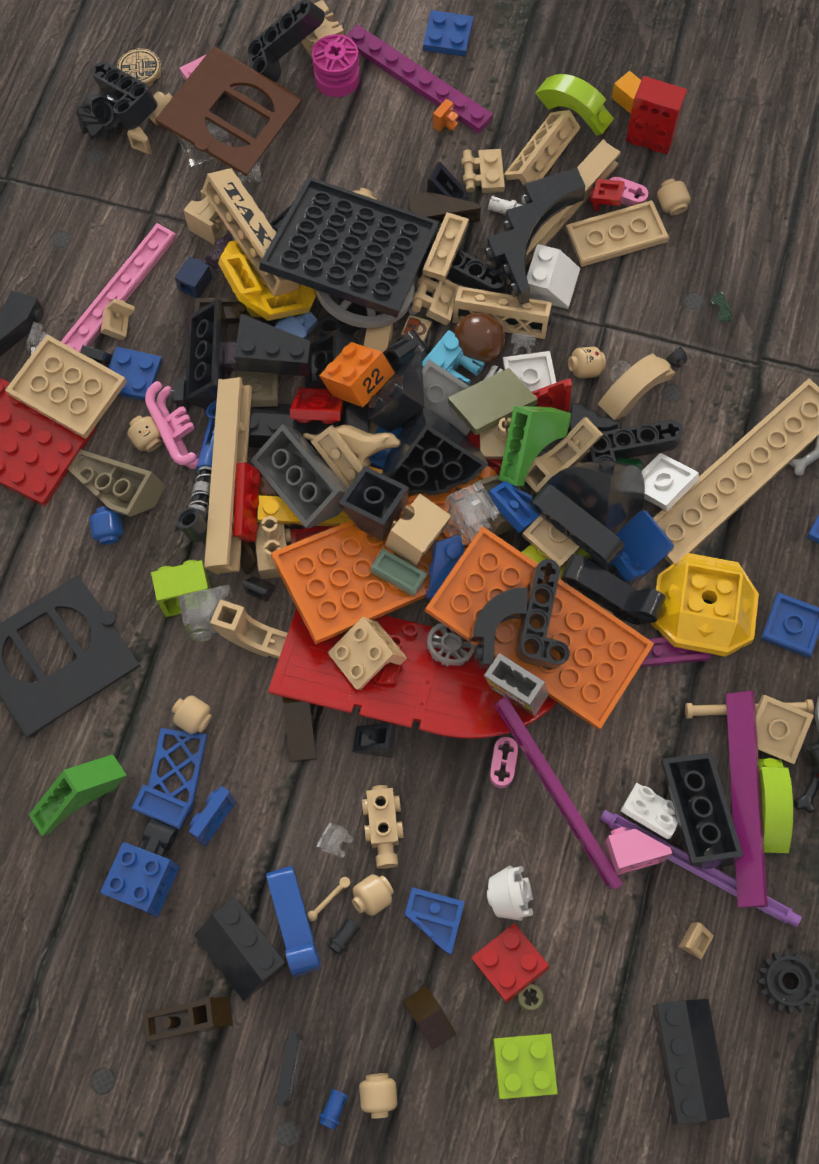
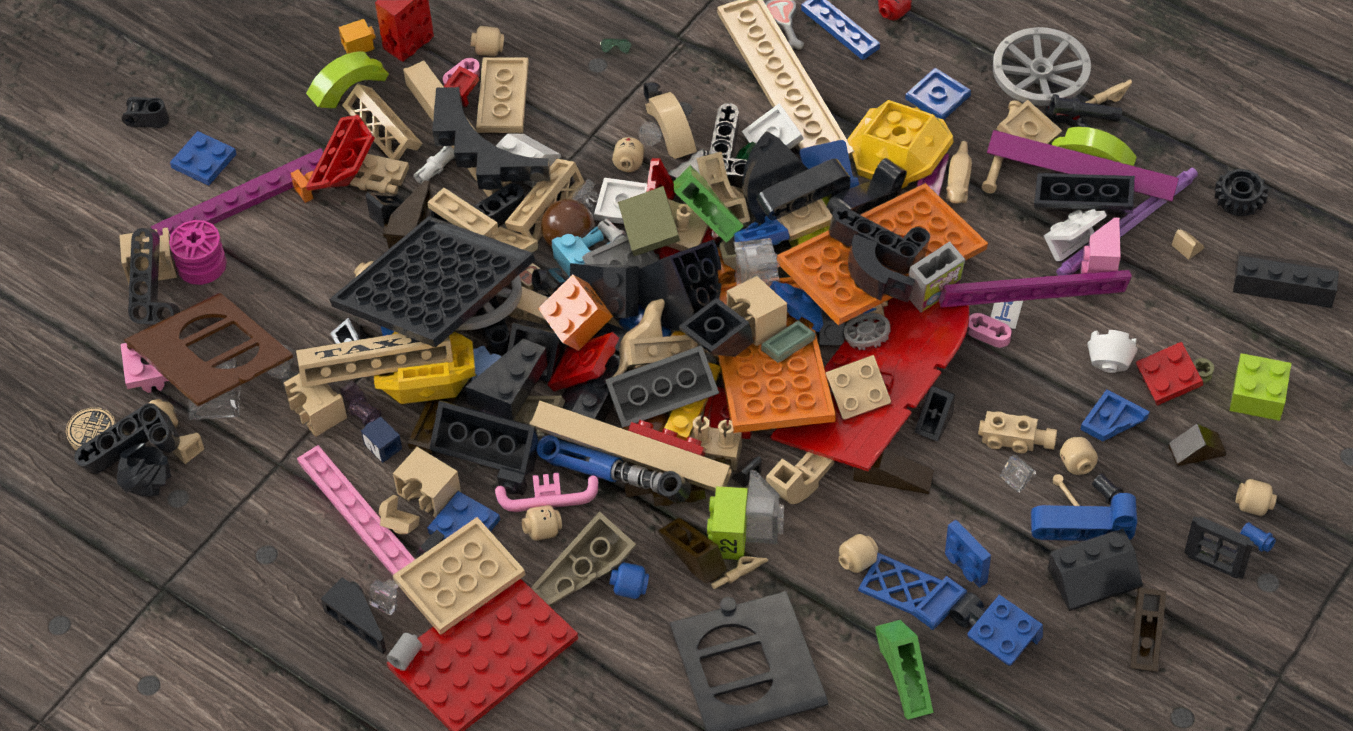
camera: 70 degrees left, 15 degrees down
(138, 579) = (694, 550): none -> dark brown slope
(145, 614) = (740, 570): none -> tan hand
(156, 326) = (426, 479): none -> tan piece
(479, 130) = (342, 154): none -> red wedge
(529, 779) = (1007, 312): none -> white sticker
(683, 675) = (959, 175): none -> tan animal

